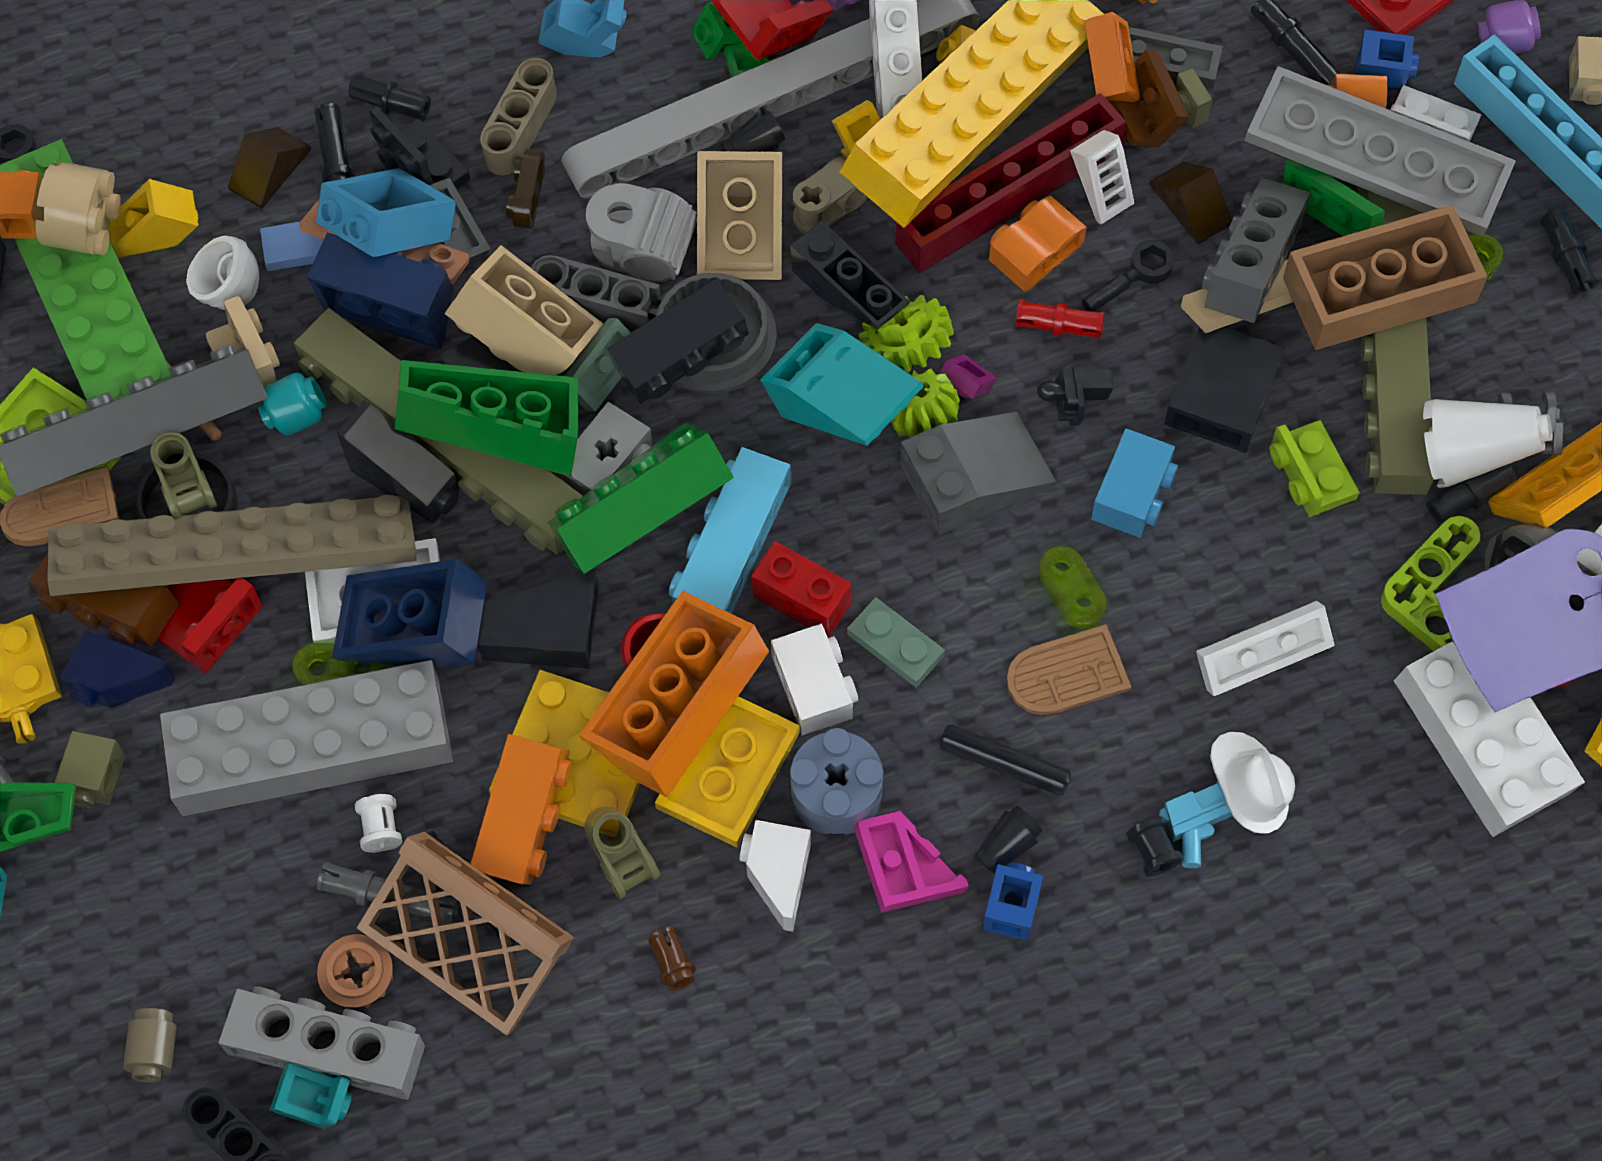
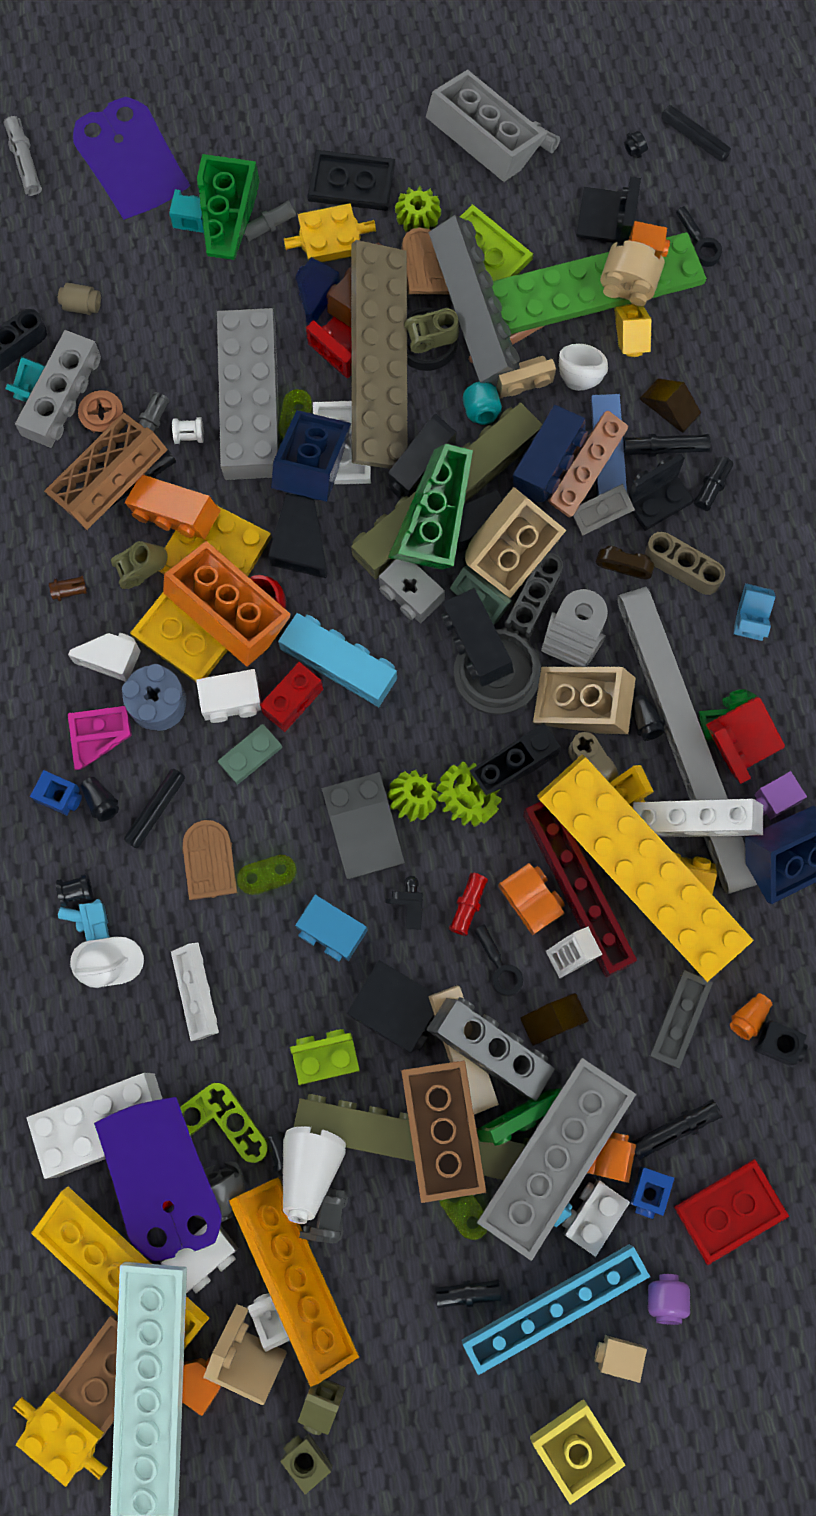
camera: 100 degrees right, 10 degrees up
(92, 766) = (254, 274): olive brick -> none
(385, 212) = (578, 463): dark azure window -> none
(640, 497) = (368, 601): green wedge -> none
(838, 385) = (428, 739): teal slope -> none
(968, 376) = (432, 832): magenta plate -> none
(1112, 58) = (668, 977): orange slope -> none
(1159, 106) = (637, 997): reddish brown bracket -> none
(1194, 97) = (636, 1034): olive plate -> none

